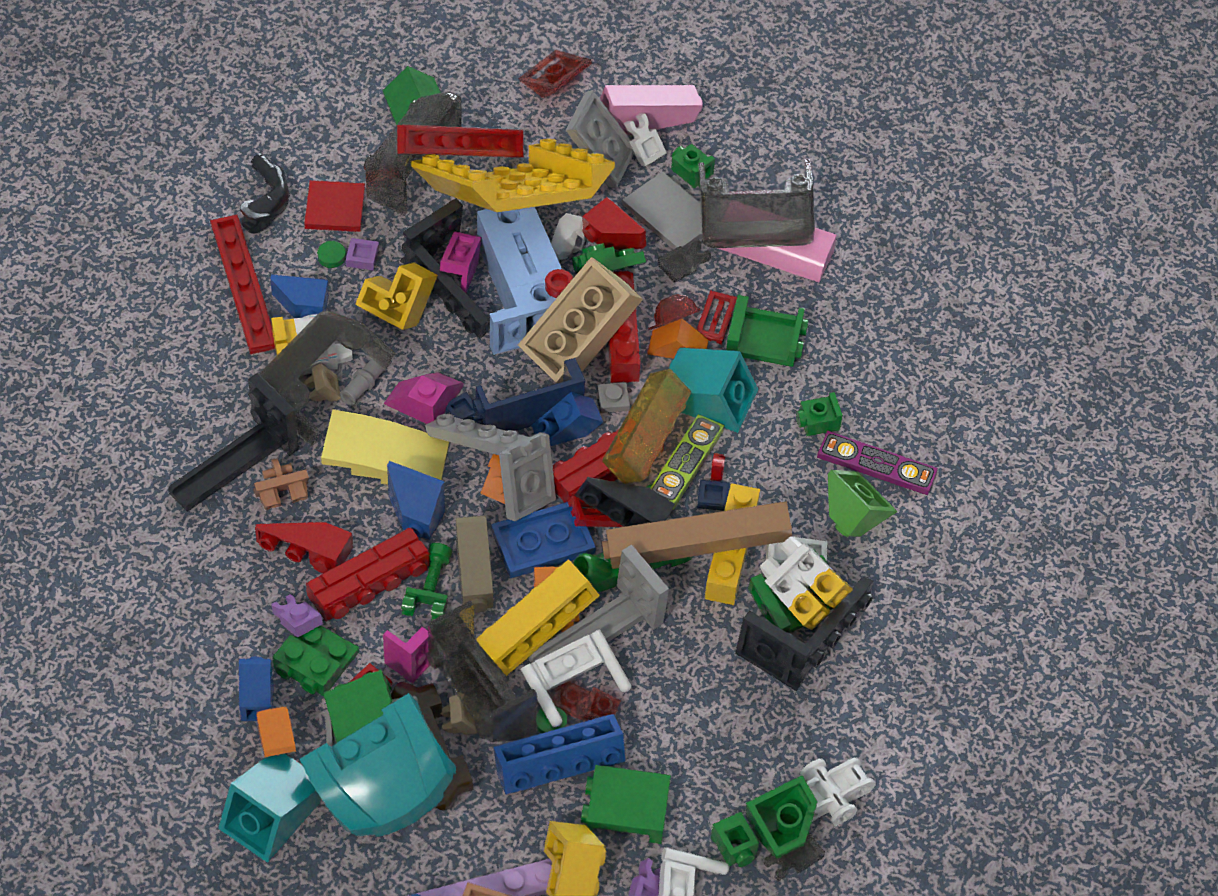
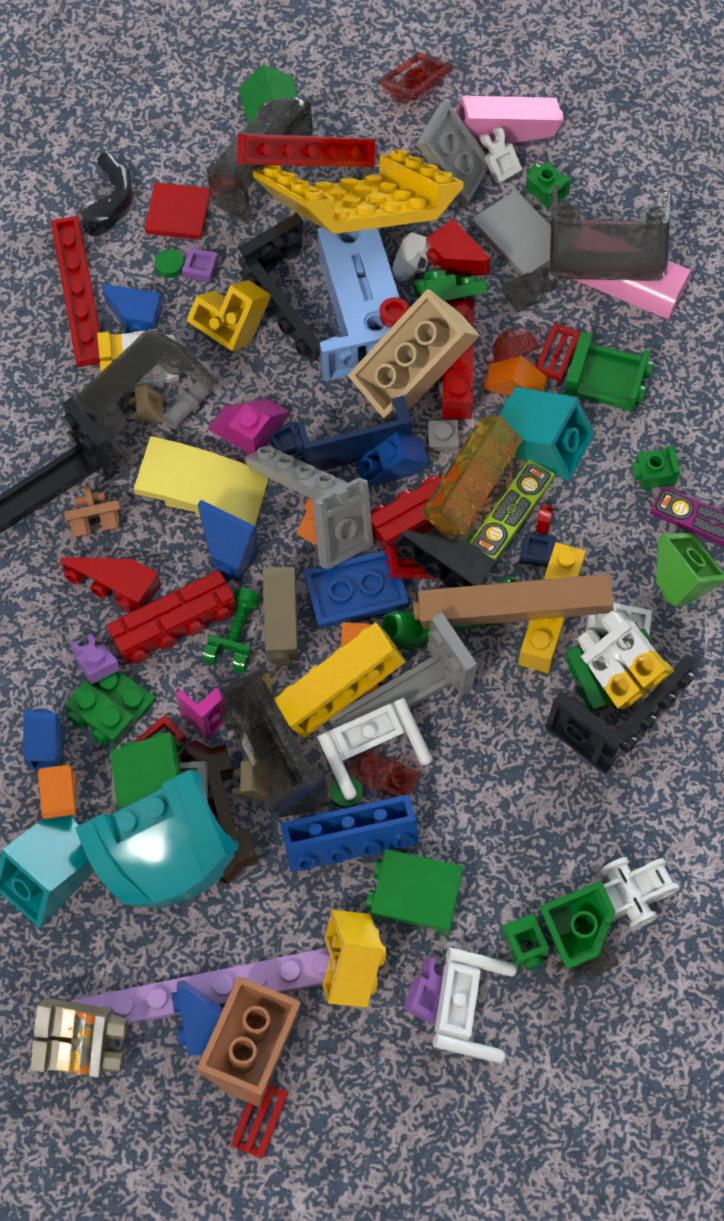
camera: 10 degrees right, 10 degrees up
(462, 257) = (299, 276): dark pink panel -> none

